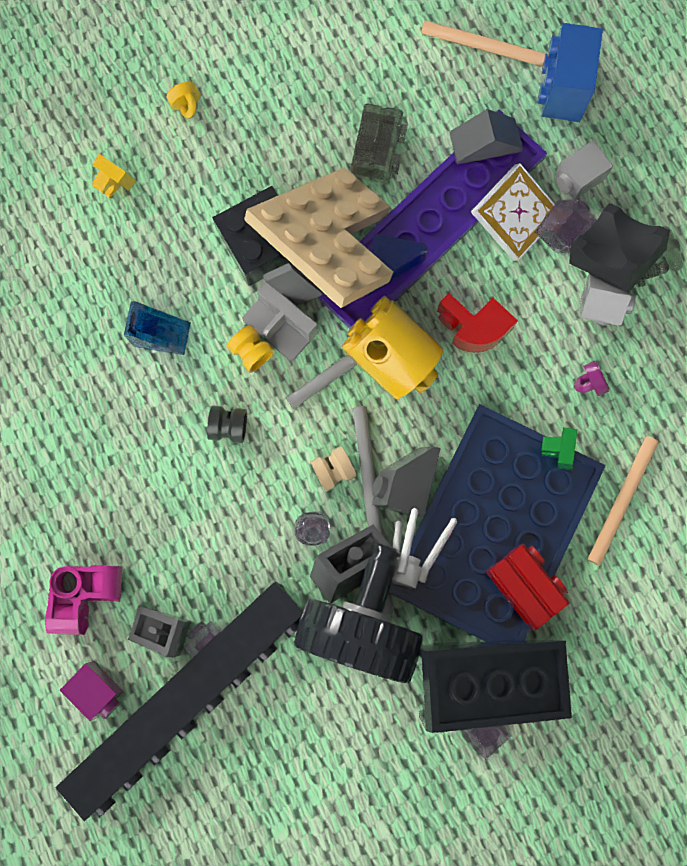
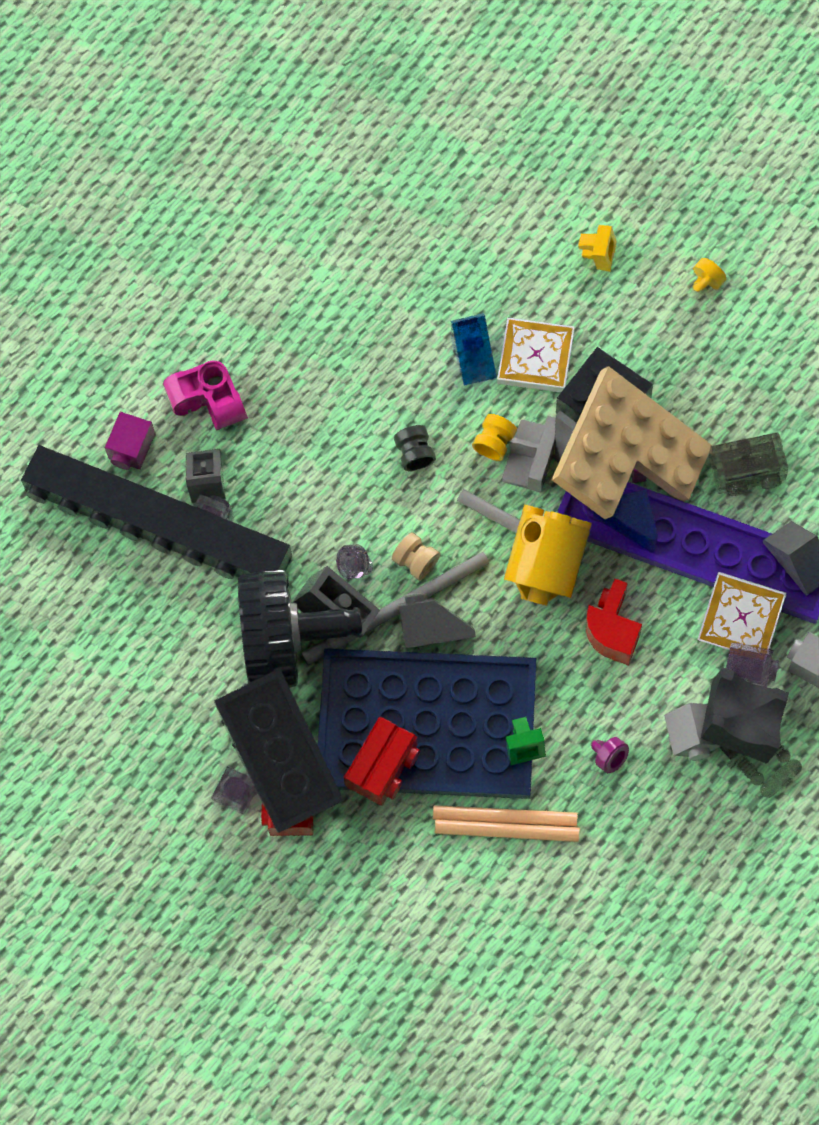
camera: 70 degrees right, 10 degrees down
(186, 278) = (535, 355): none -> tile
(408, 569) = (350, 651): white plant -> none
(609, 496) = (510, 816): none -> light nougat bar

